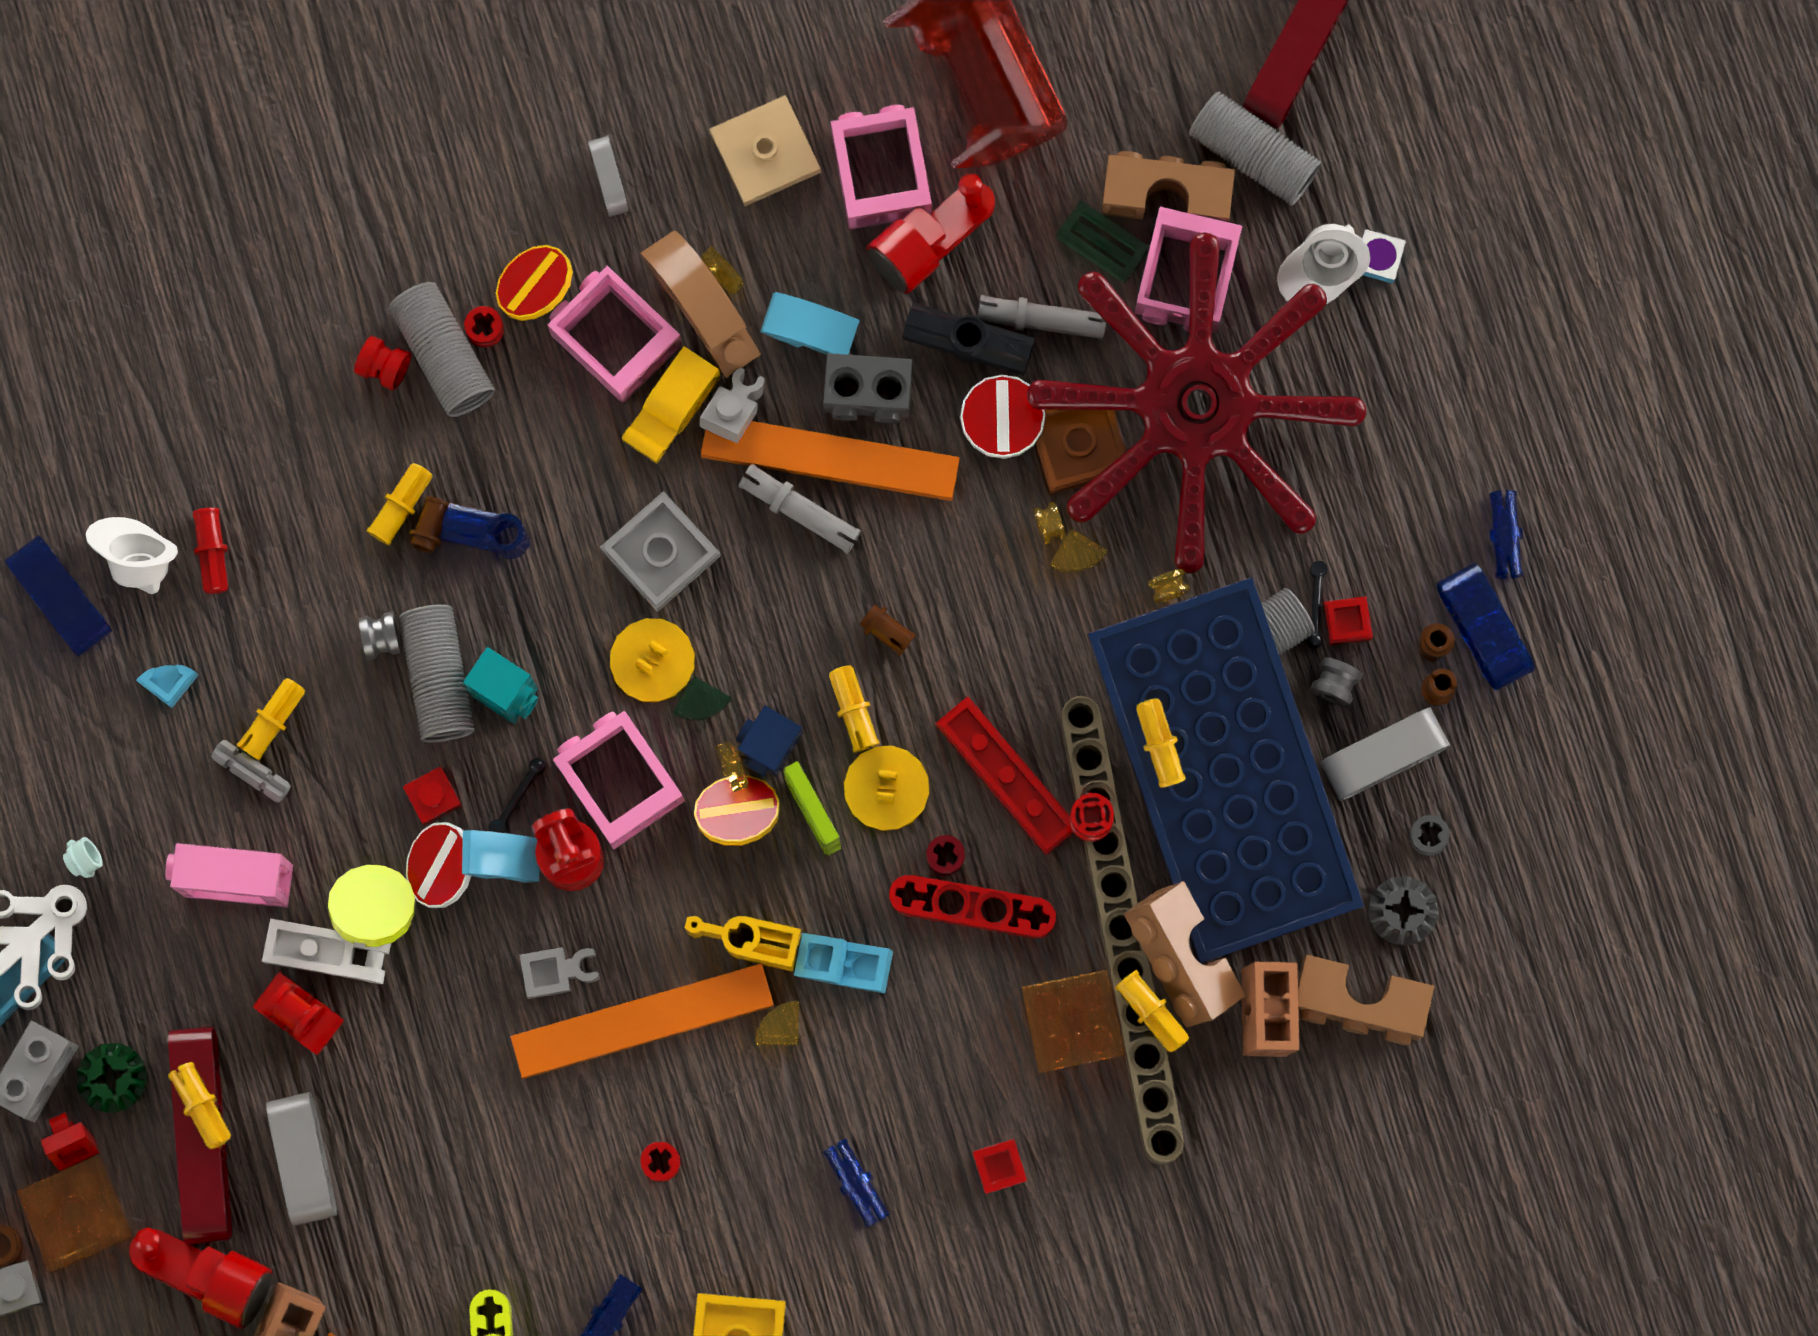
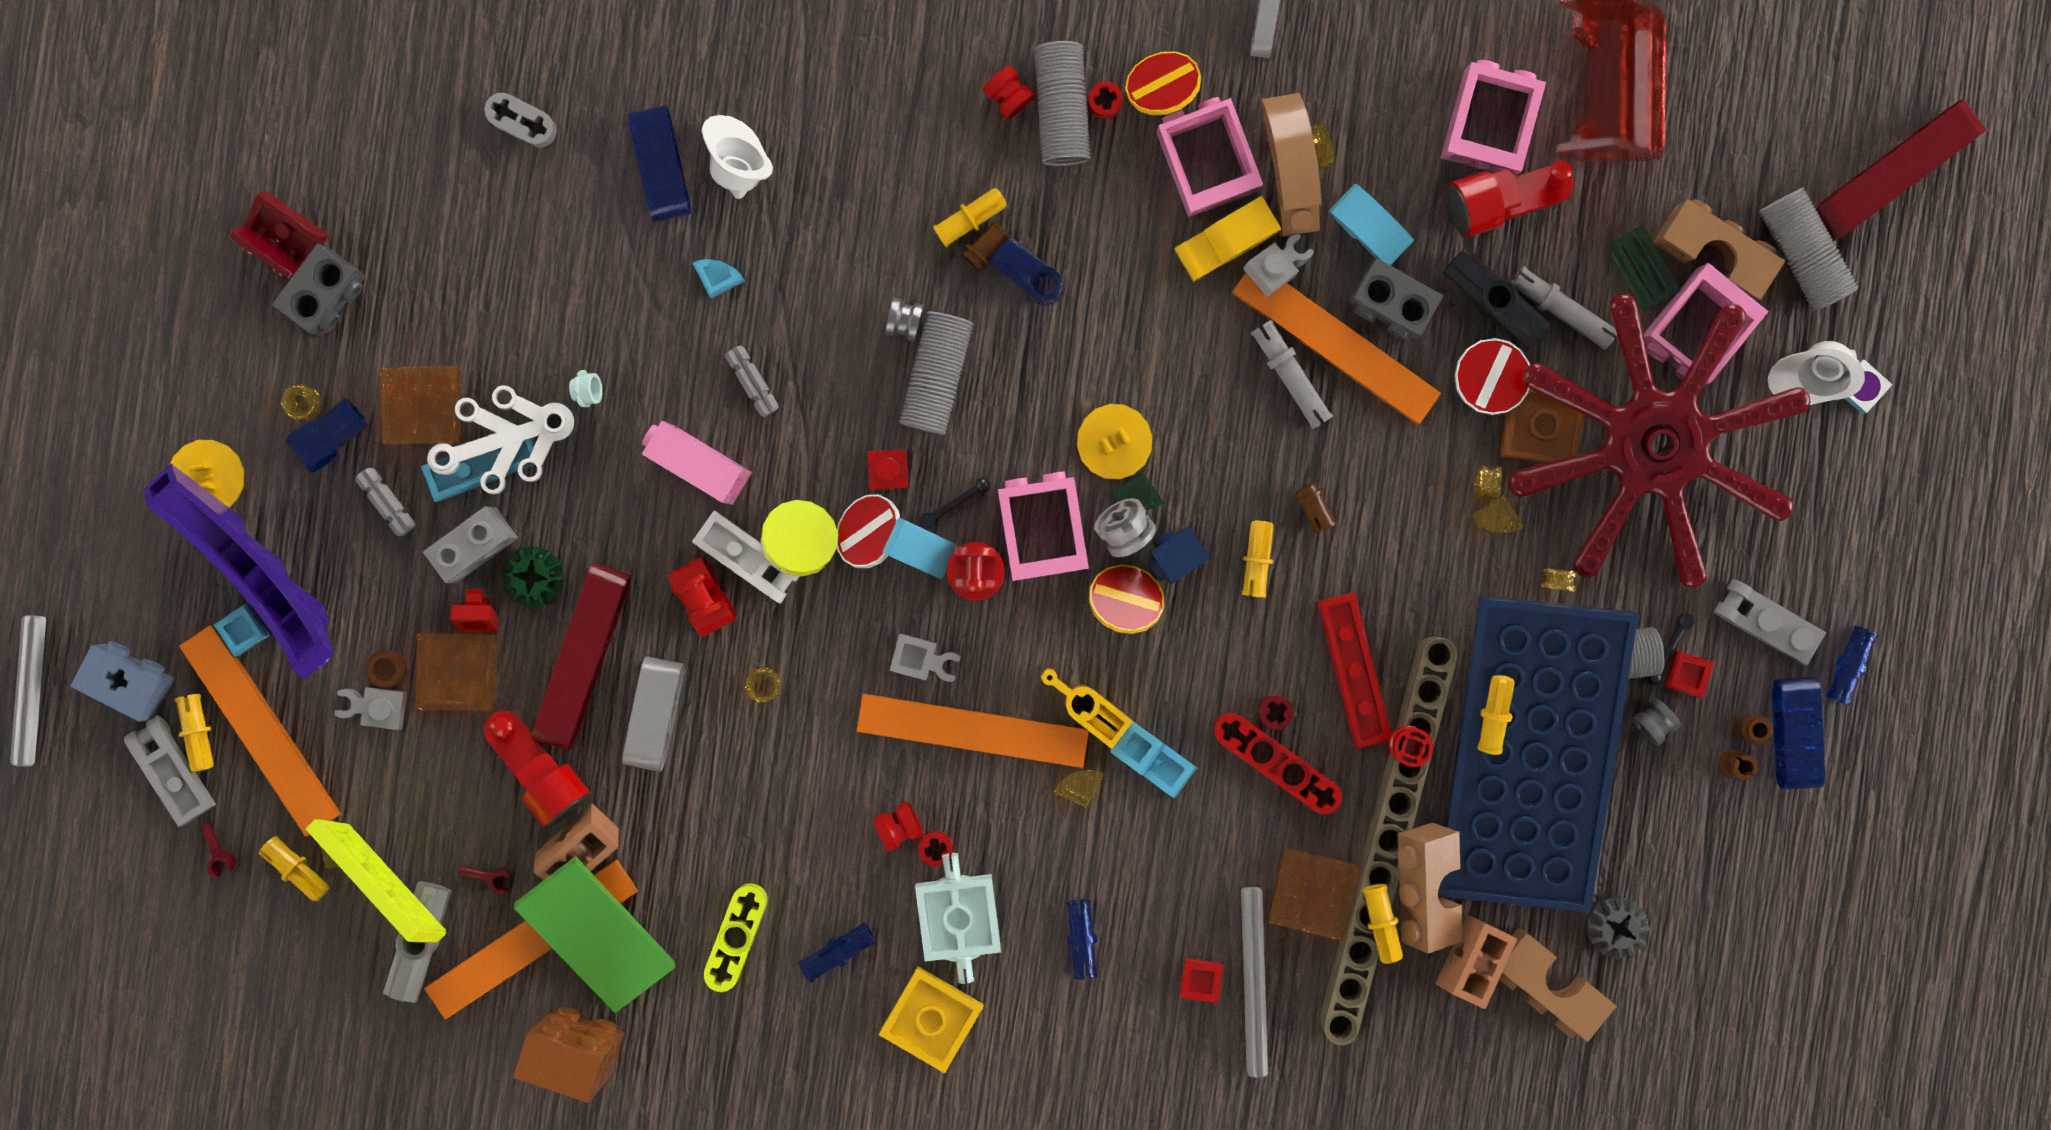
camera: 25 degrees right, 10 degrees up
(200, 1105) = (589, 639): yellow axle -> none
(210, 550) = (799, 183): red axle -> none
(271, 718) = (787, 346): yellow axle -> none
(390, 1076) = (773, 690): none -> clear yellow bush
(502, 686) = (984, 410): teal brick -> none
(609, 1154) = (898, 826): none -> red wheel
(660, 551) = (1162, 356): light grey plate -> none
(701, 738) = (1125, 527): none -> light grey wheel
(716, 1220) = (958, 918): none -> light aqua plate
(732, 766) = (1139, 565): clear yellow tile -> none
(765, 150) = (1403, 59): tan plate -> none
(812, 809) = (1187, 629): lime tile -> none
(886, 788) = (1253, 634): yellow piece -> none
(1056, 1143) = (1254, 982): none -> light grey axle
(1385, 754) = (1667, 798): light grey beam -> none
(1403, 531) = (1770, 623): none -> light grey plate
(1442, 837) = (1678, 885): dark grey bush -> none

